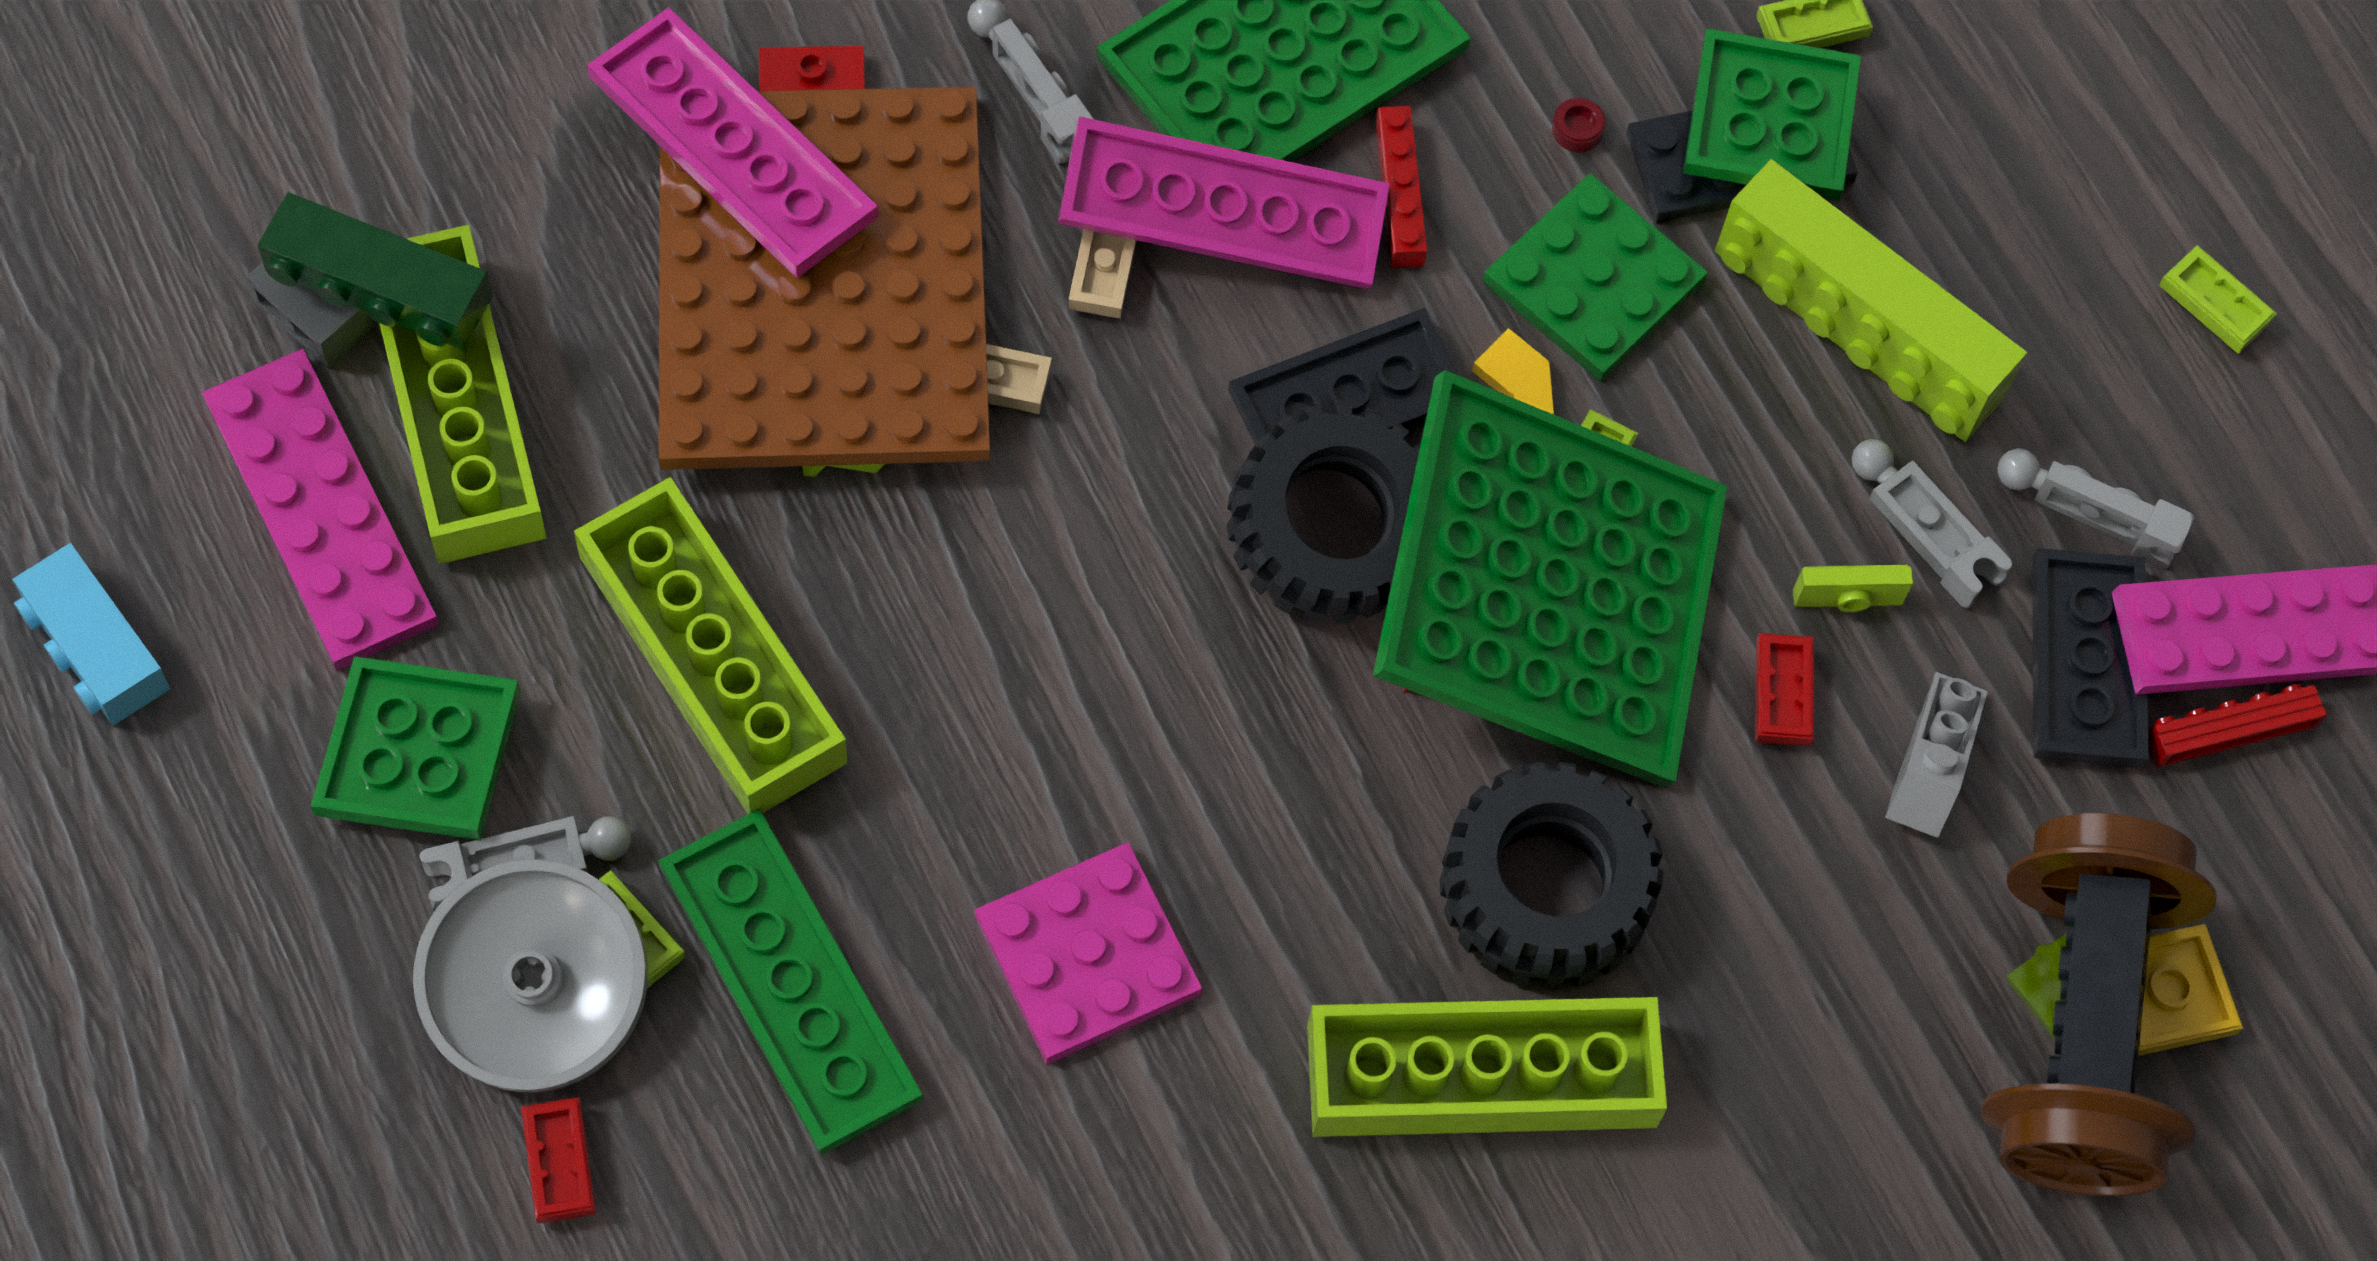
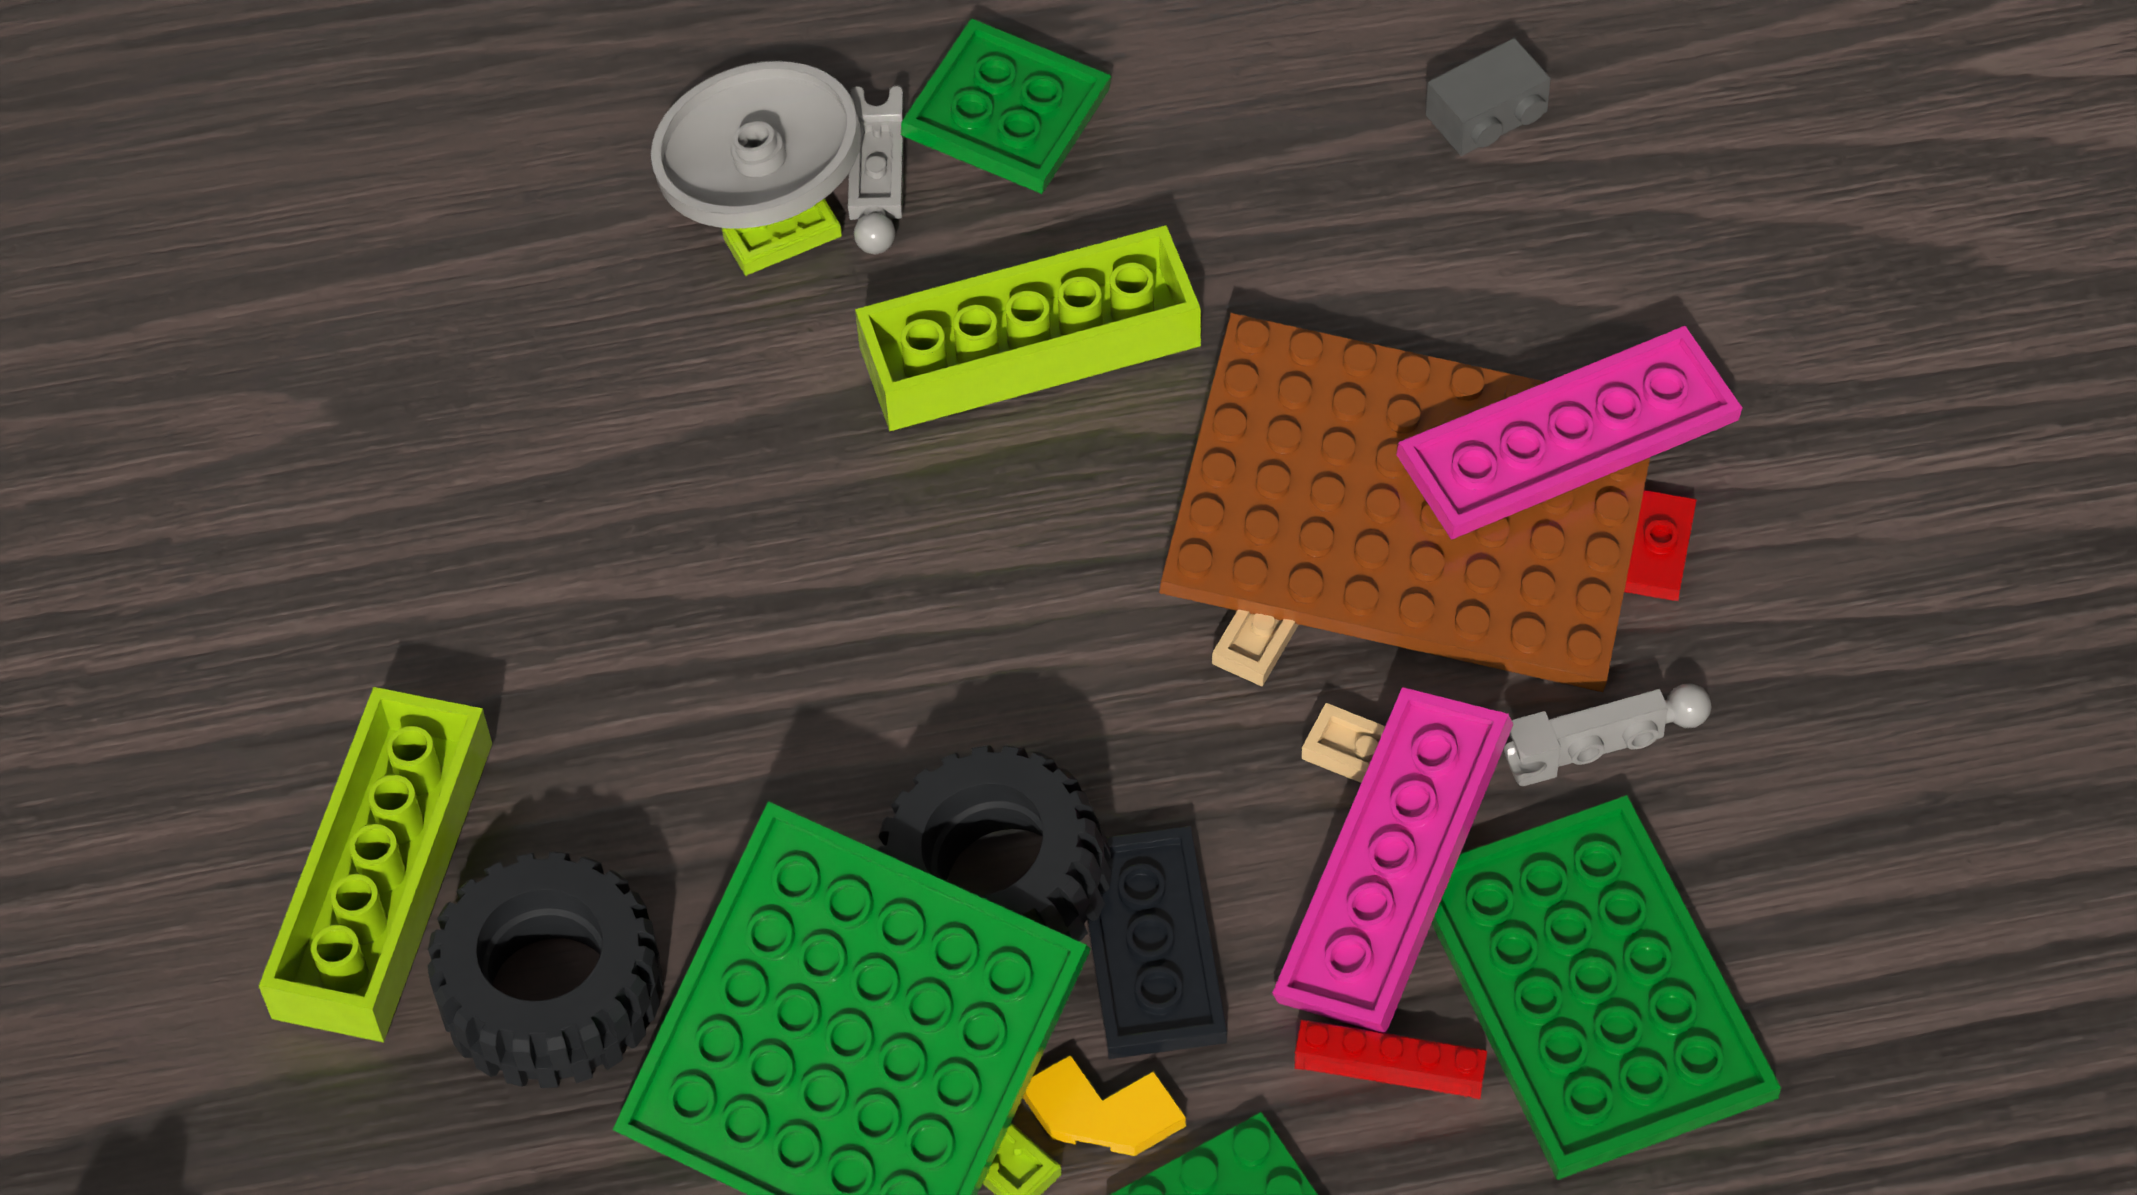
camera: 115 degrees right, 10 degrees down
(320, 509) = (1275, 83): dark pink plate -> none
(374, 272) = (1469, 103): dark green brick -> none
(464, 431) = (1354, 178): lime brick -> none
(558, 1160) = (591, 151): red plate -> none
(790, 982) = (690, 341): green plate -> none
(1087, 953) = (633, 583): dark pink plate -> none

